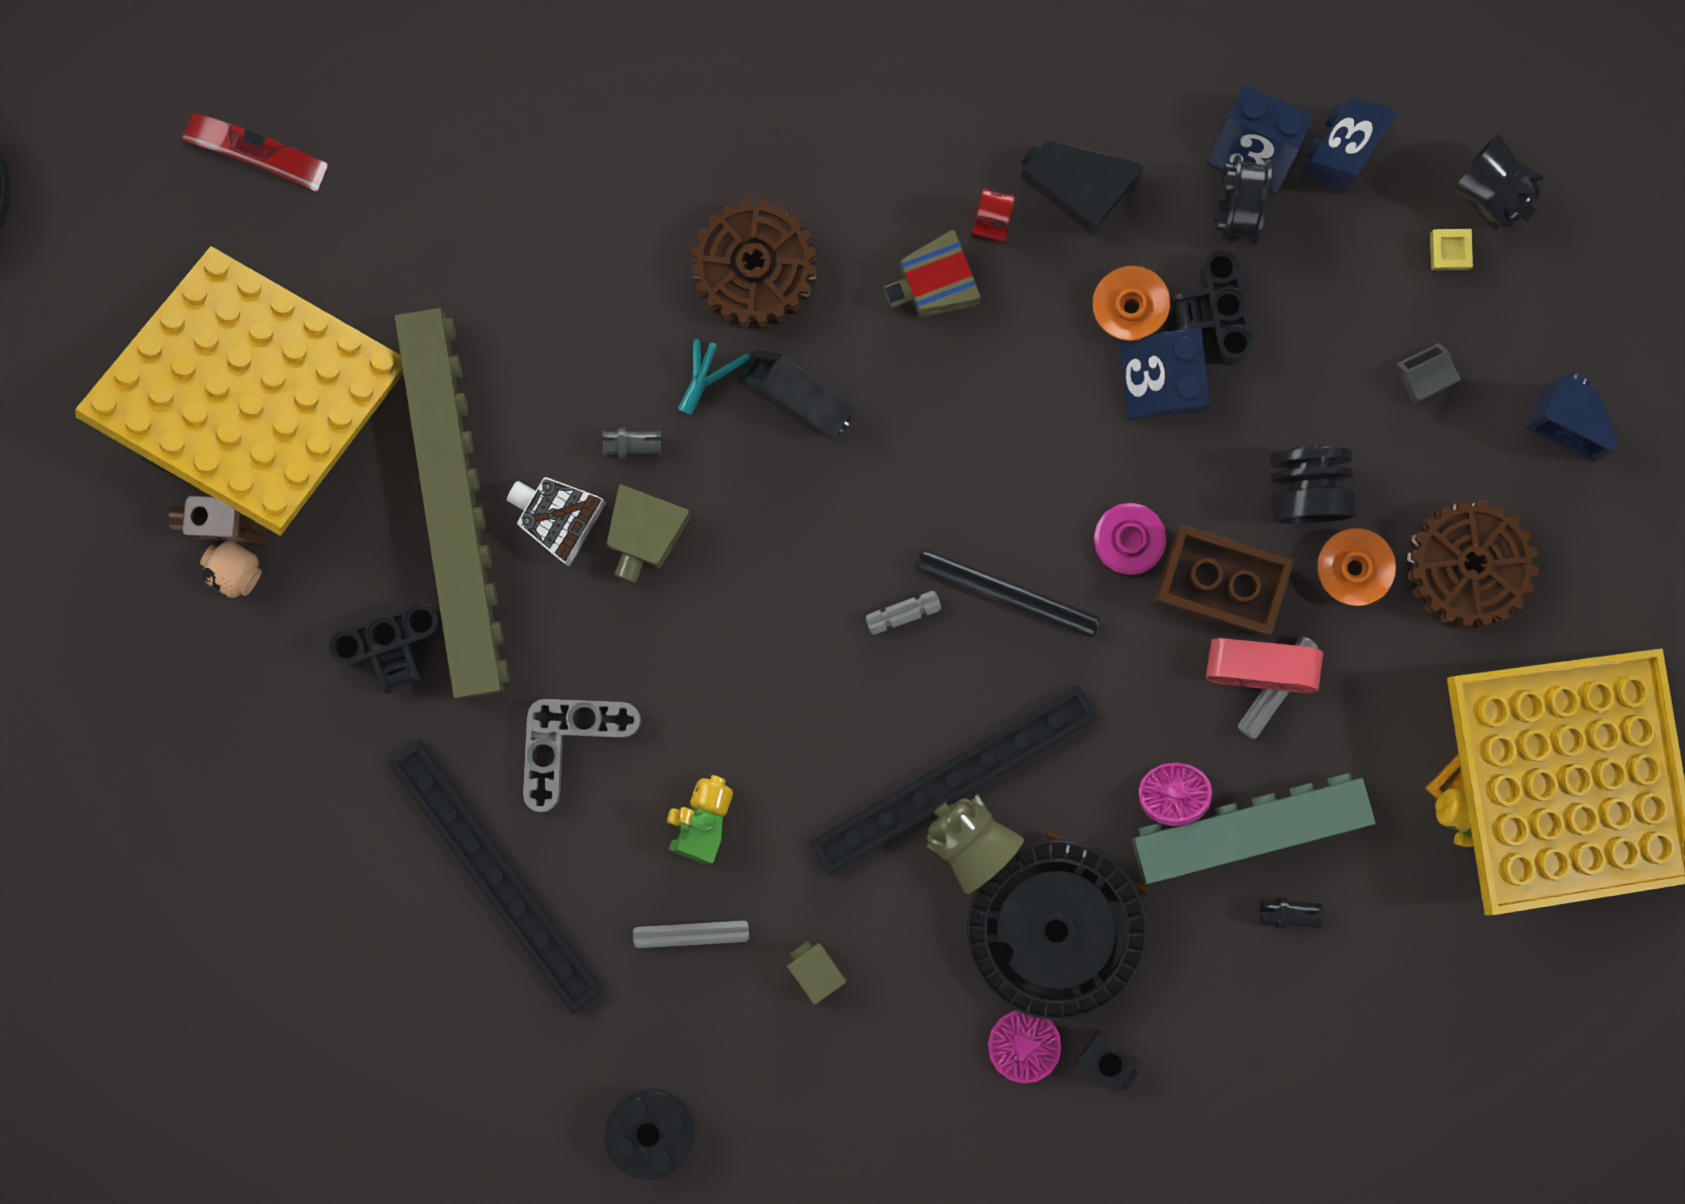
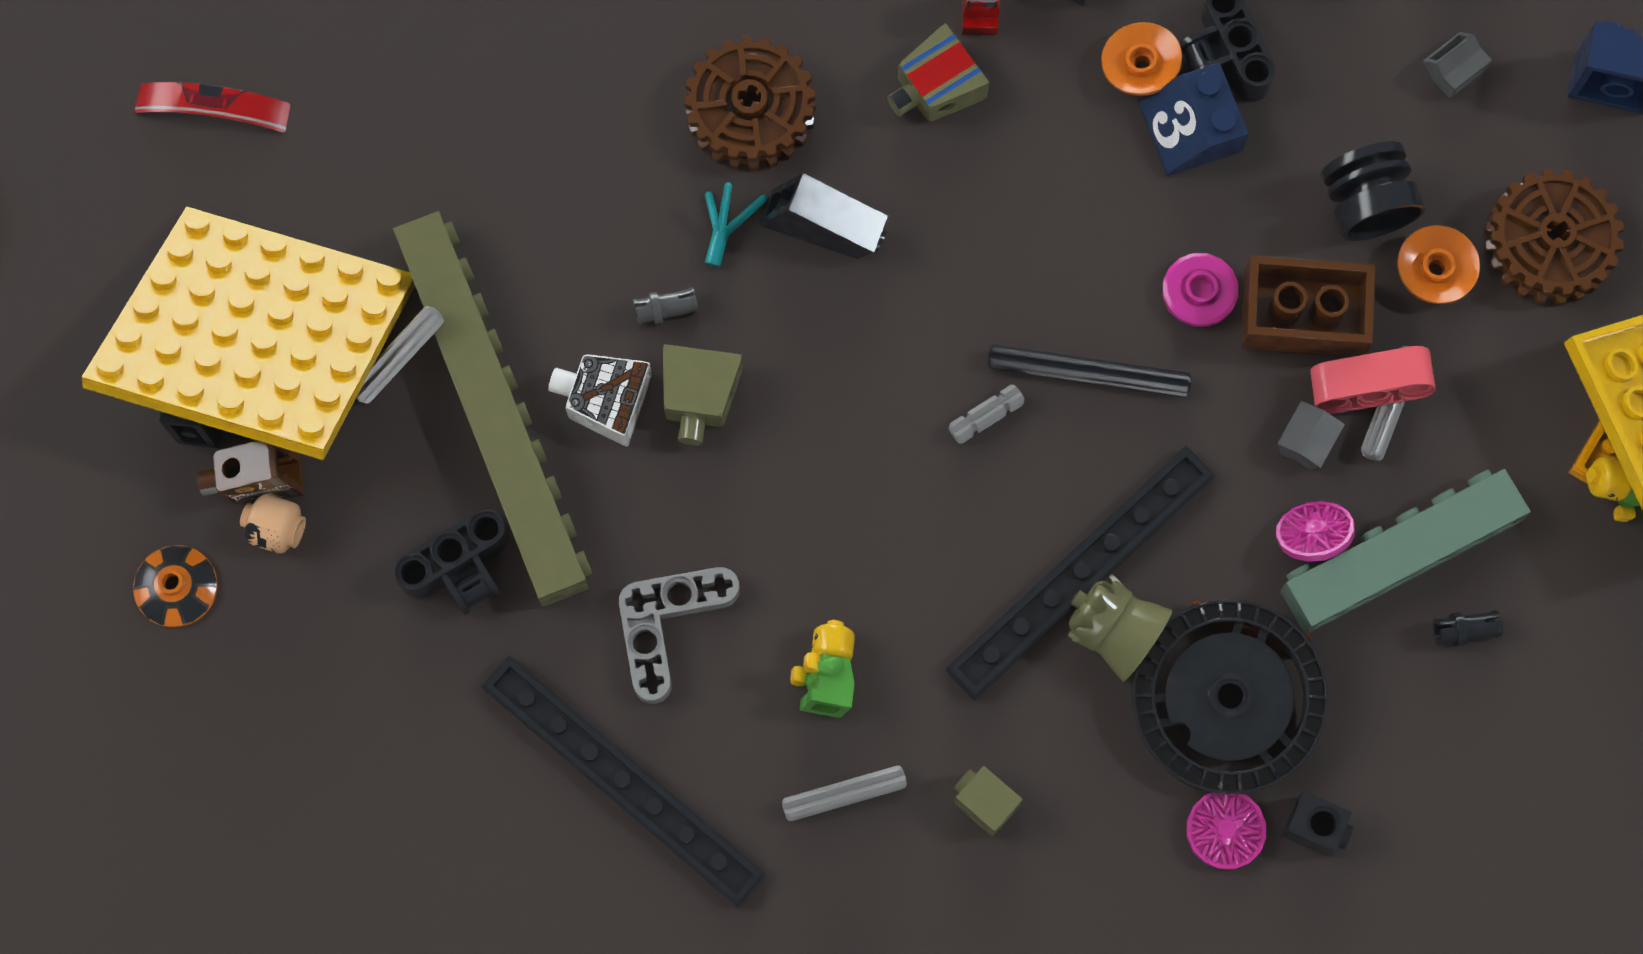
camera: 15 degrees left, 10 degrees down
(151, 606) = (189, 599): none -> dish
(379, 434) = (400, 352): none -> light grey axle
(1194, 702) = (1309, 436): none -> dark grey piece

